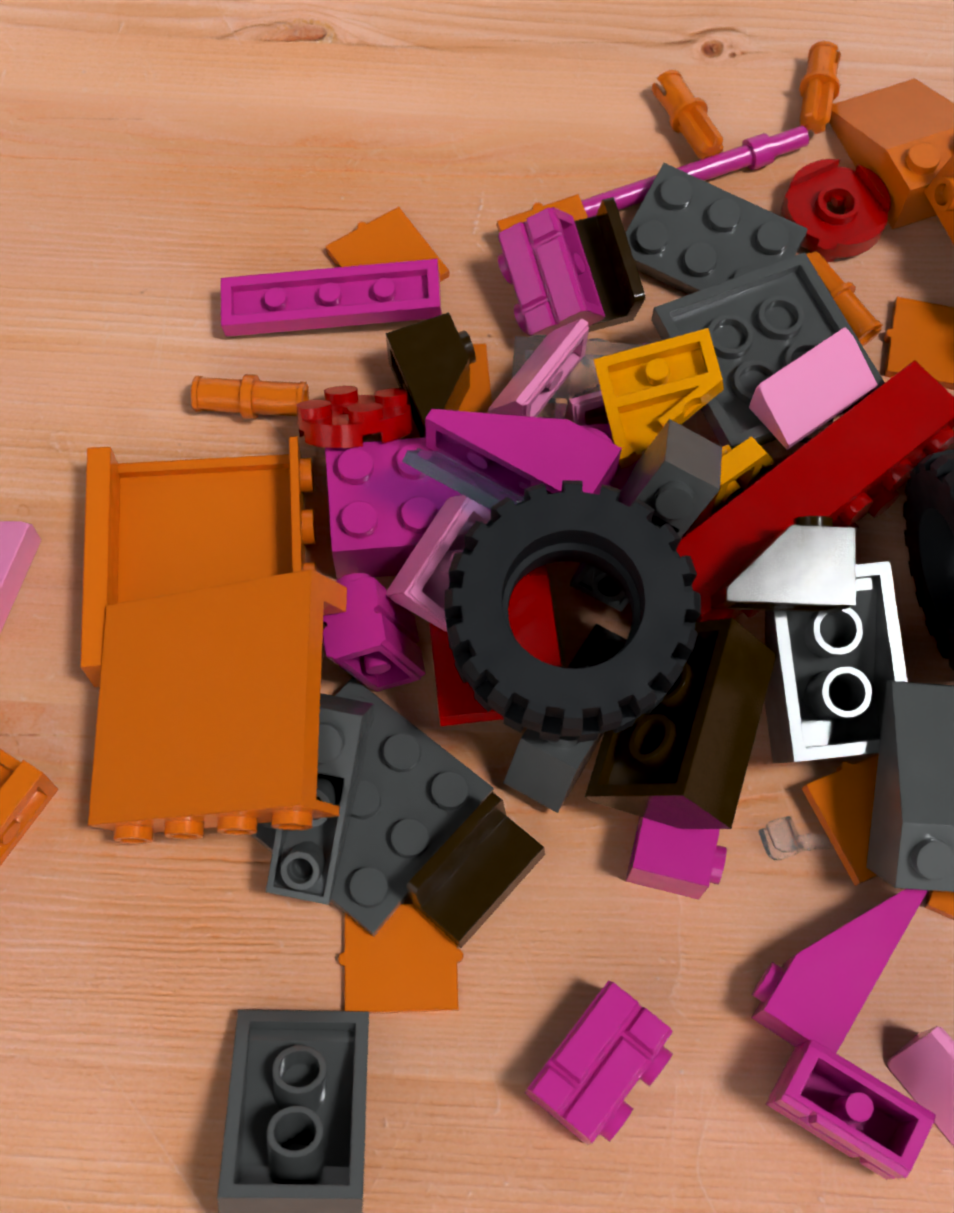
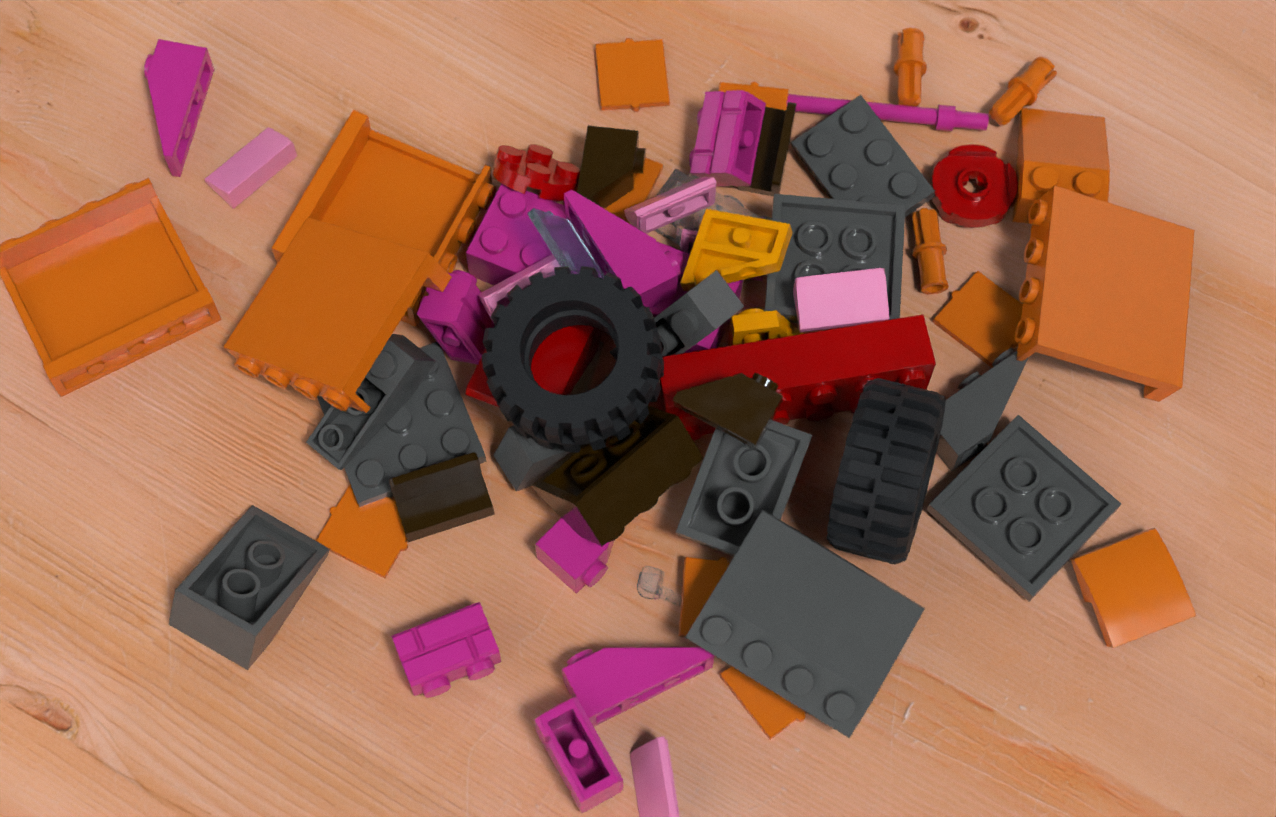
camera: 30 degrees right, 0 degrees up
(247, 396) = (479, 124): orange pin -> none
(330, 297) = (574, 83): dark pink plate -> none

